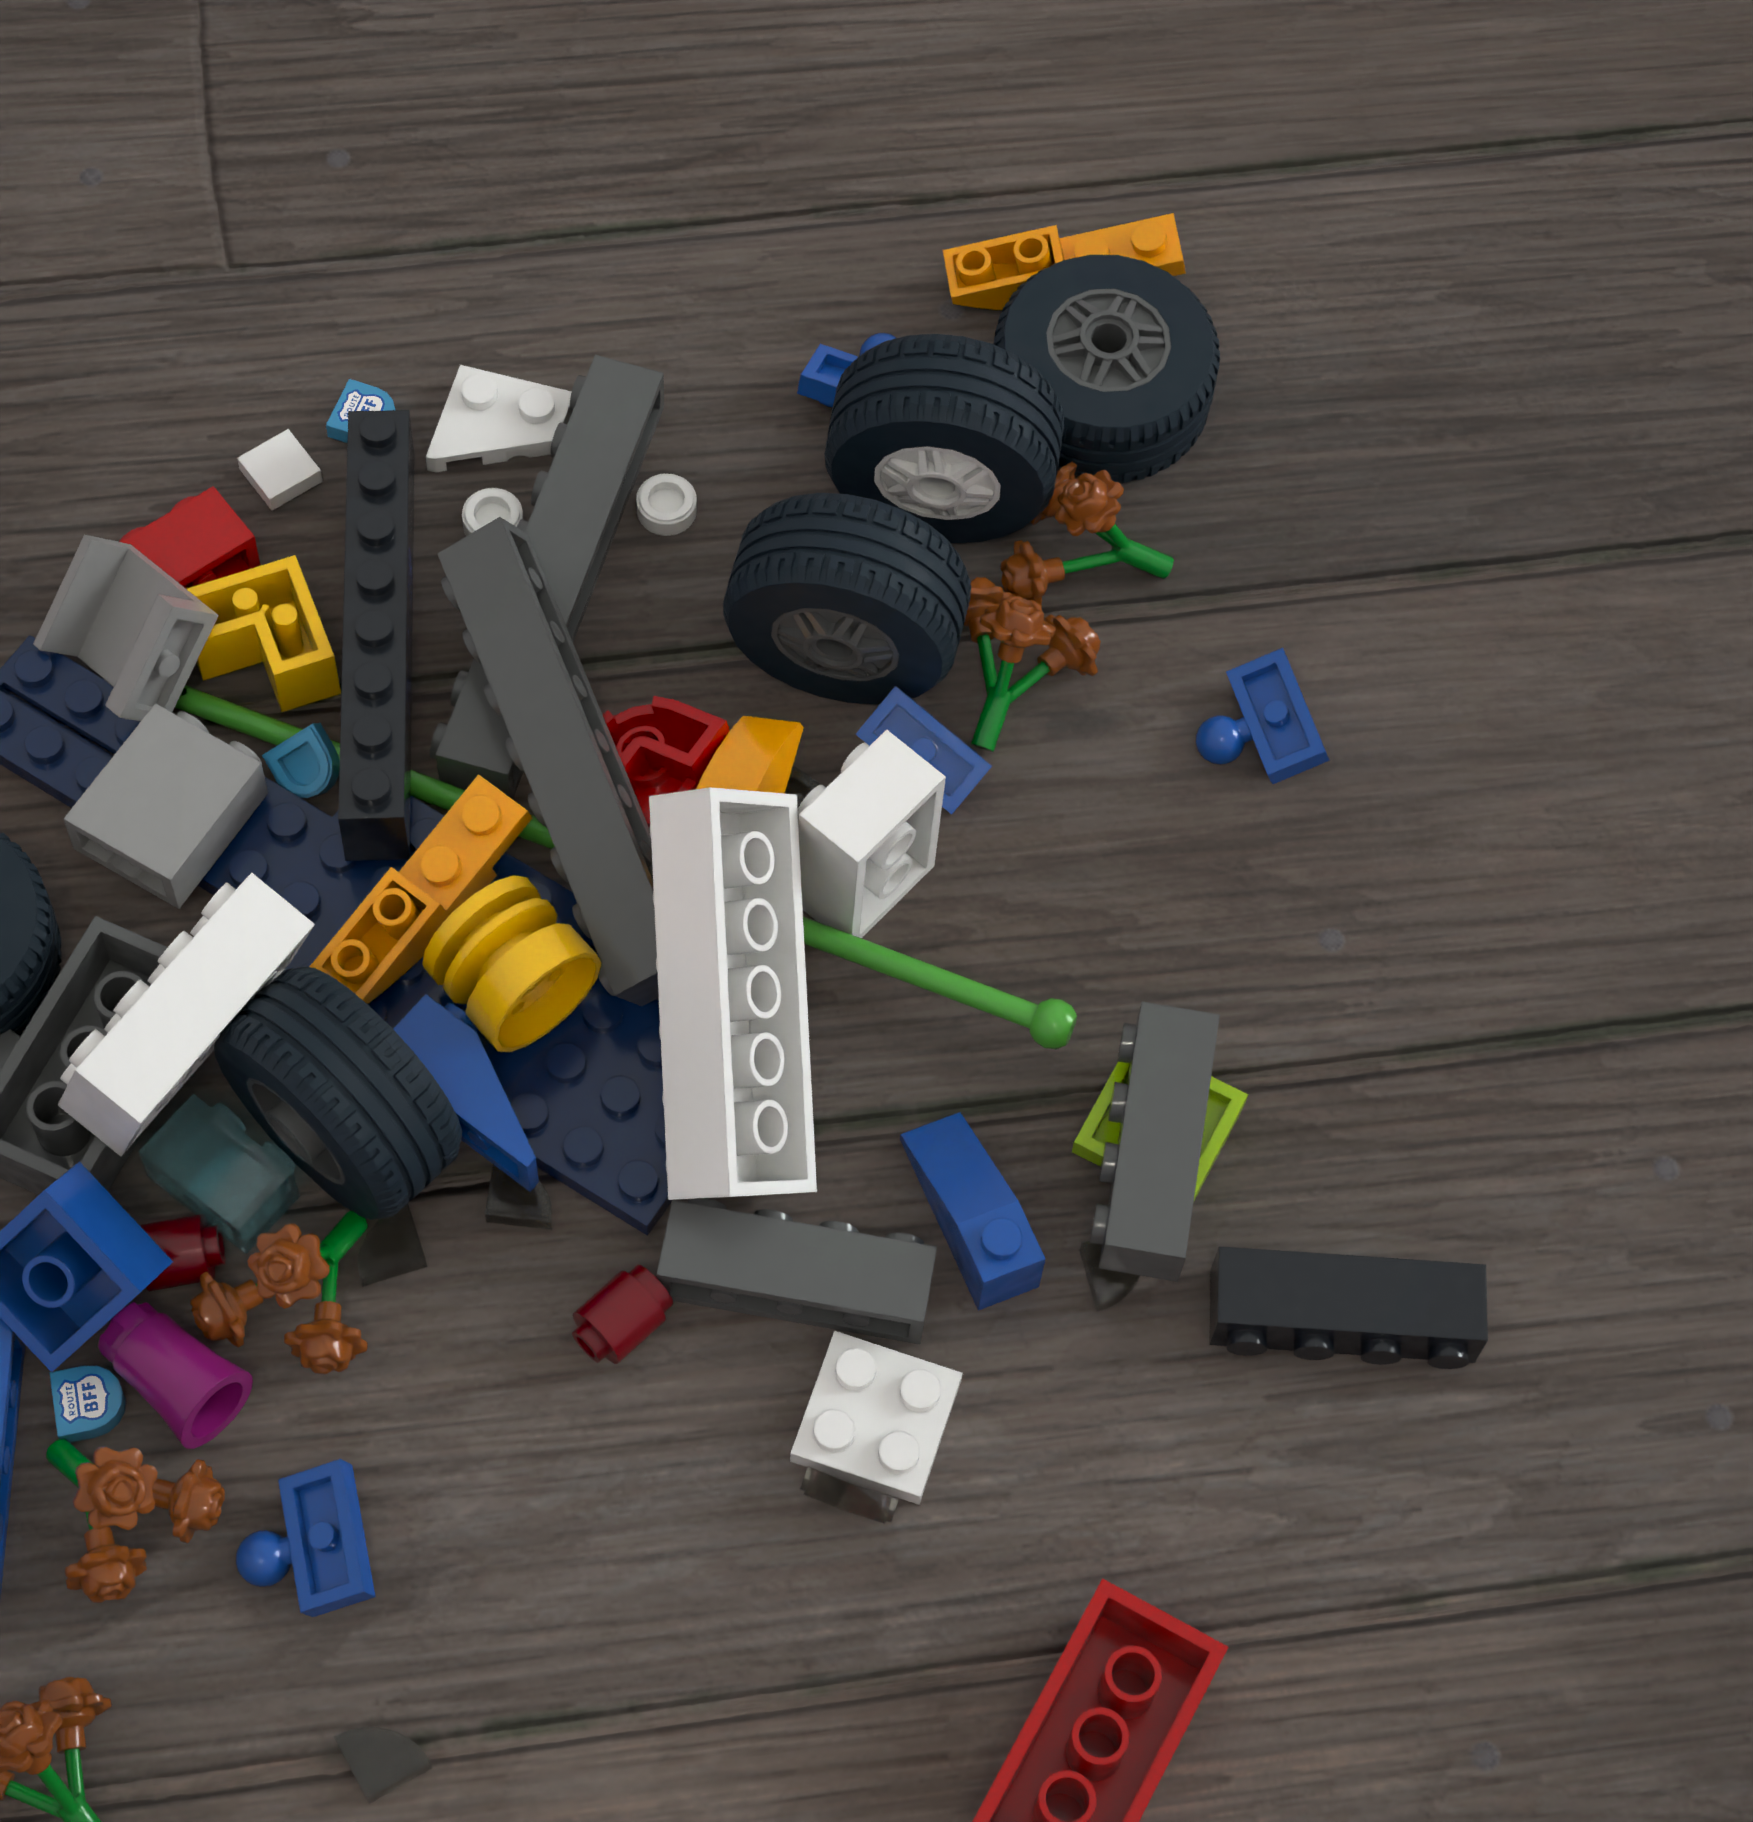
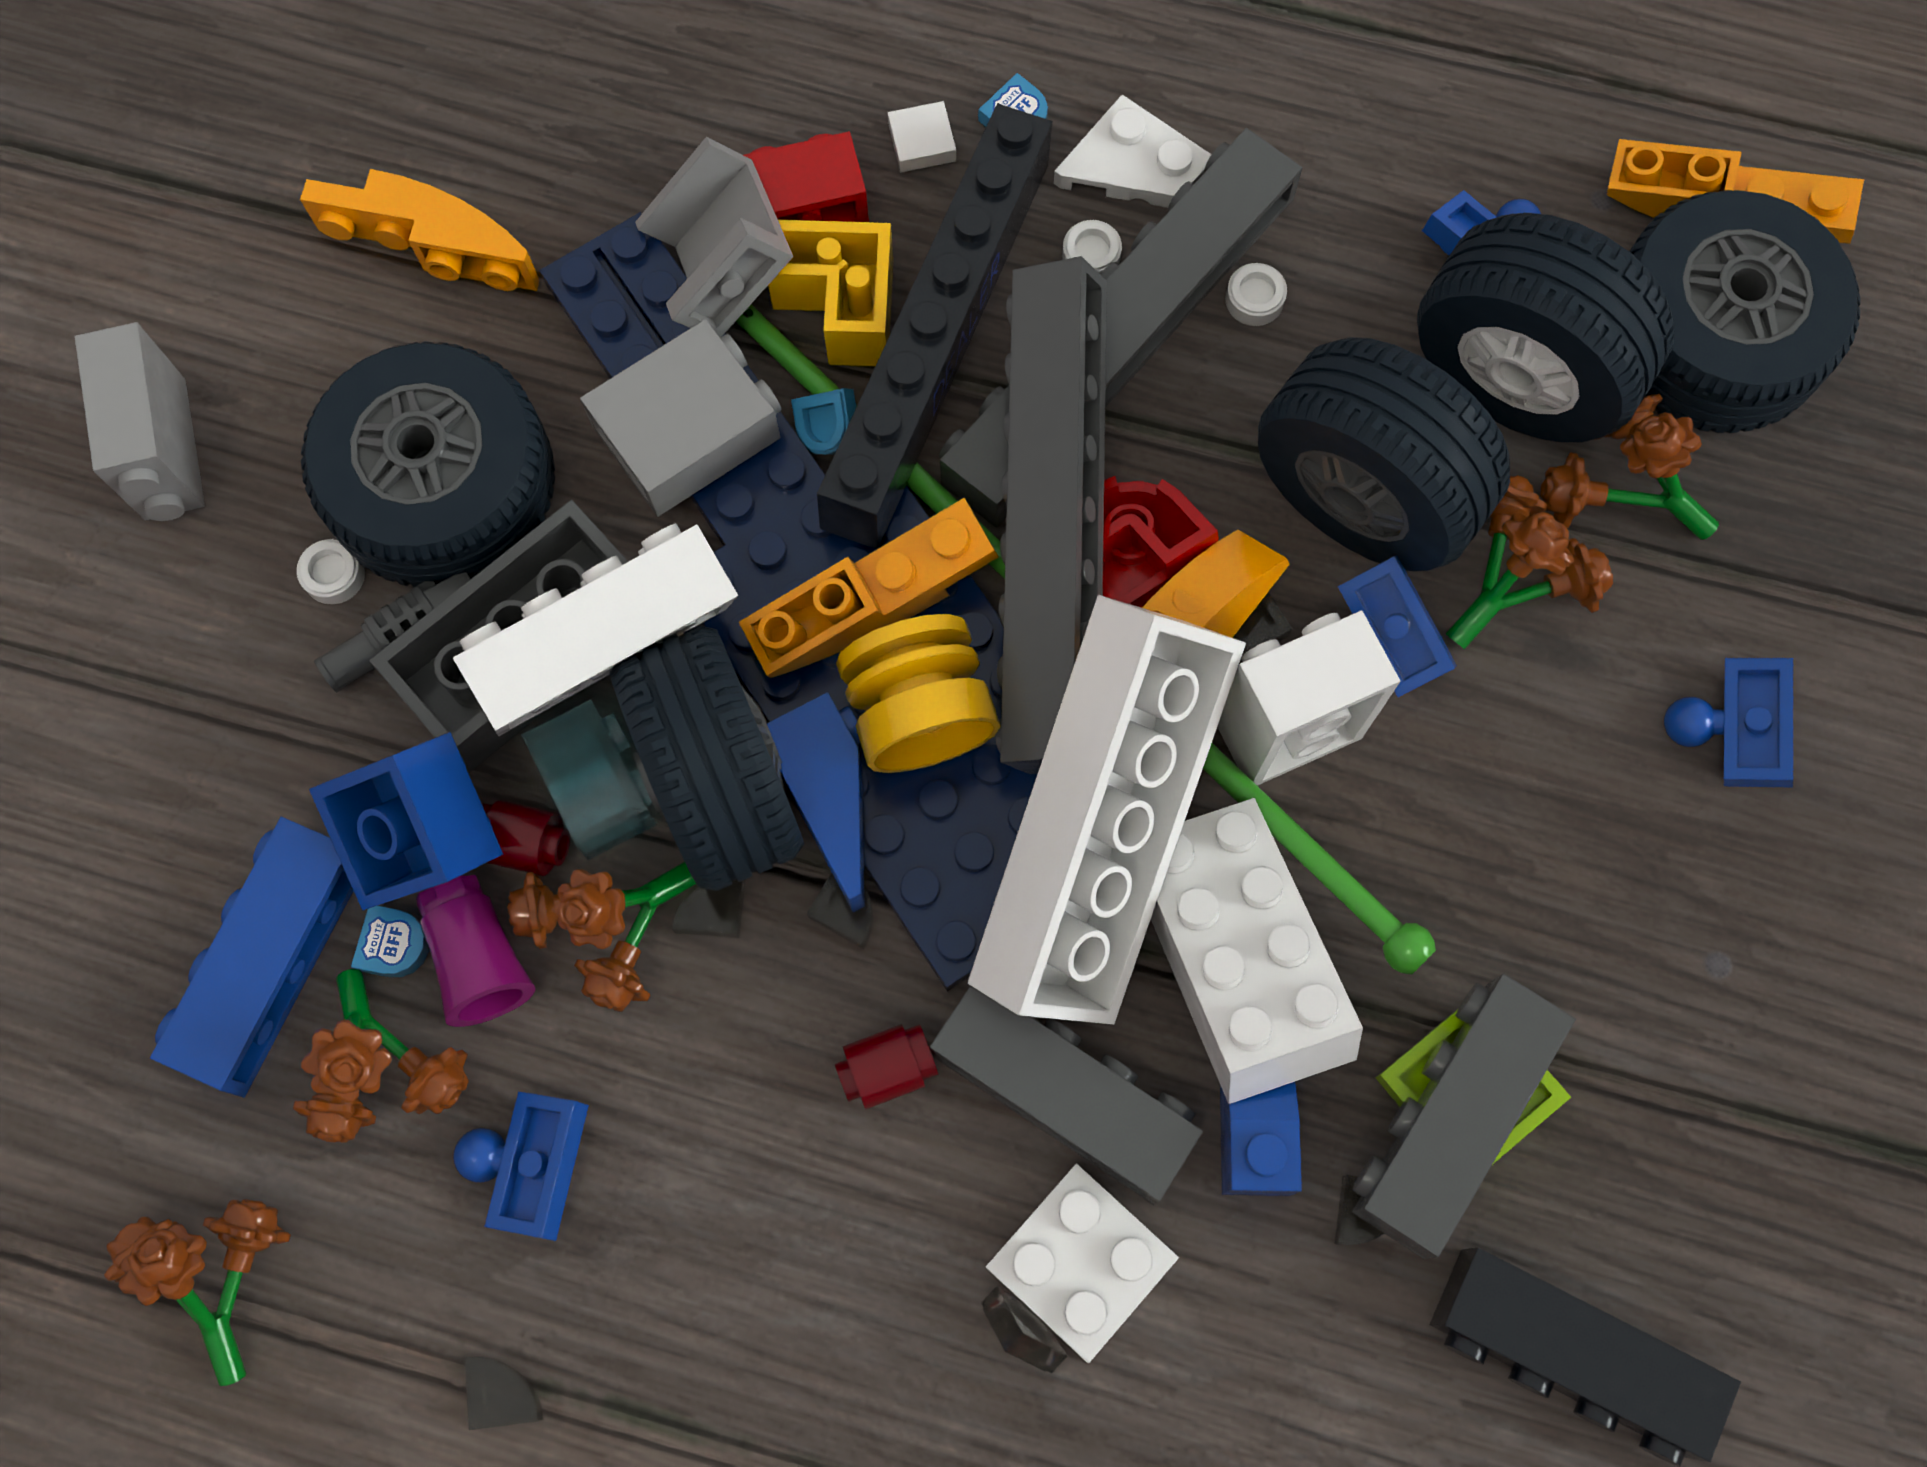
camera: 30 degrees right, 10 degrees up
(915, 1080) = (1250, 957): none -> white brick

